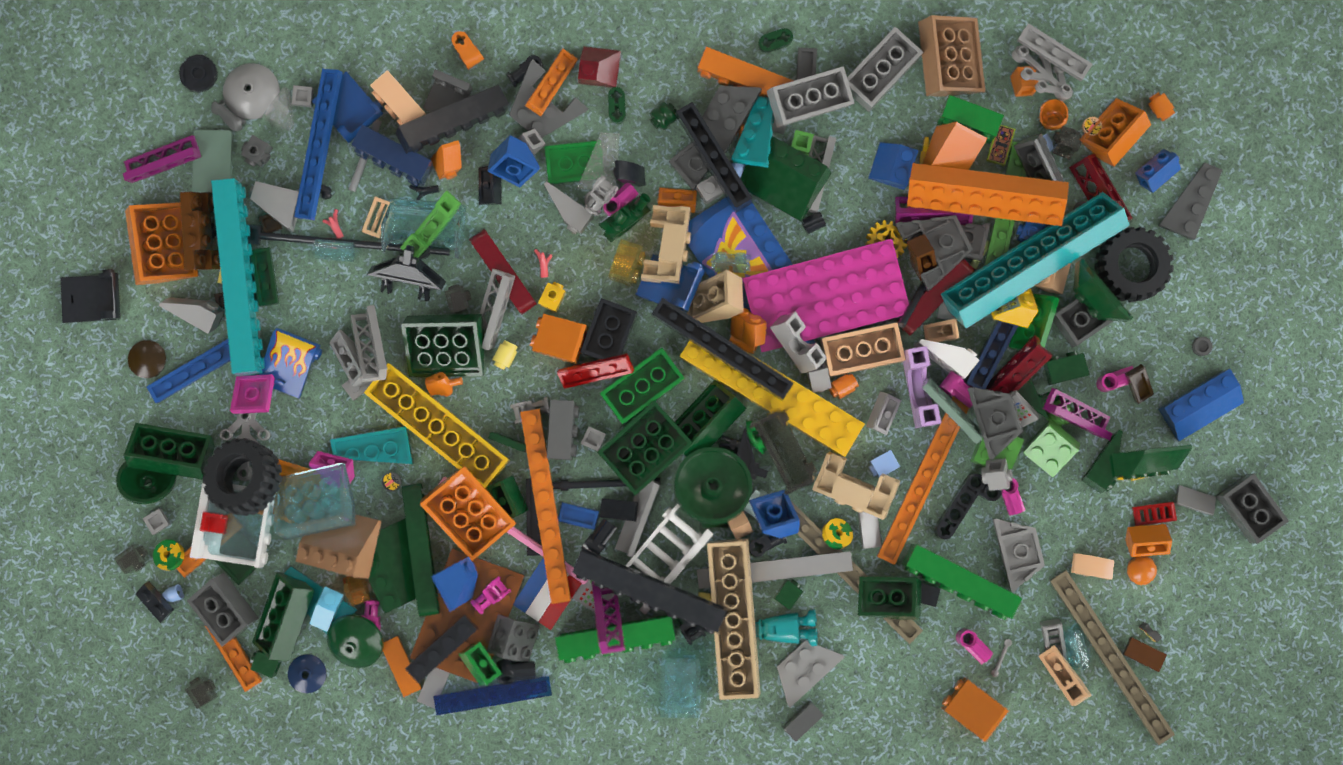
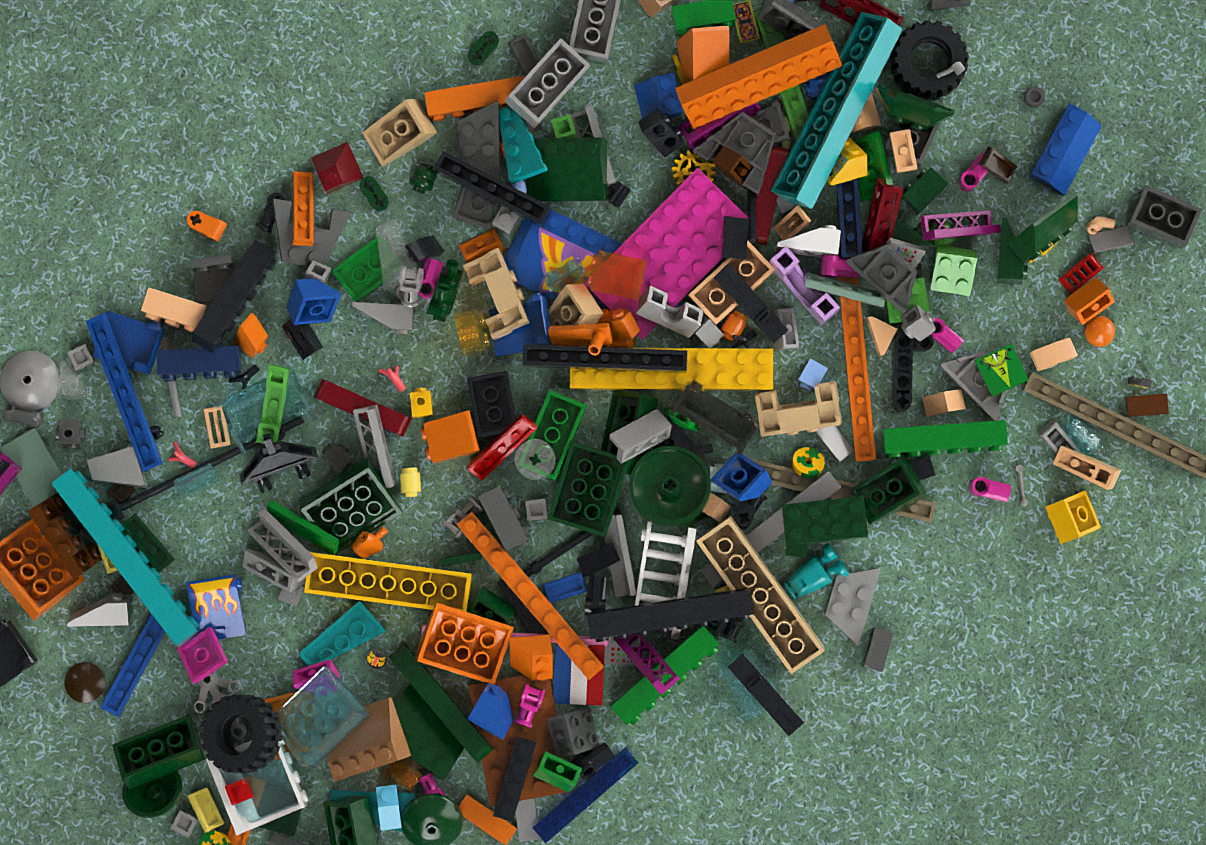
camera: 30 degrees left, 0 degrees up
(180, 521) = (205, 809): none -> light yellow plate
(395, 340) = (303, 528): none -> green tile
(517, 556) = (532, 656): none -> orange slope
(615, 408) = (544, 452): none -> clear plate
(667, 67) = (399, 131): none -> tan slope
(688, 704) = (765, 694): none -> black piece
(710, 316) = (581, 335): none -> orange piece
(714, 429) = (640, 435): none -> light grey panel
(773, 287) = (617, 275): none -> clear orange panel
(822, 591) = (824, 521): none -> dark green brick
(845, 402) = (743, 340): none -> black bar
(869, 375) = (751, 303): none -> black piece
(876, 193) = (658, 134): none -> black brick
(888, 314) = (735, 237): none -> black panel
(960, 465) = (881, 333): none -> light nougat slope
(974, 709) = (1023, 545): orange slope -> none
(978, 551) = (943, 402): none -> light nougat slope
(1028, 710) = (1073, 517): none -> yellow slope
(1042, 553) = (1001, 370): none -> green tile
(1069, 326) = (903, 151): none -> light nougat plate
(1156, 284) = (957, 67): none -> light grey hand
(1194, 481) = (1098, 223): none -> light nougat arm

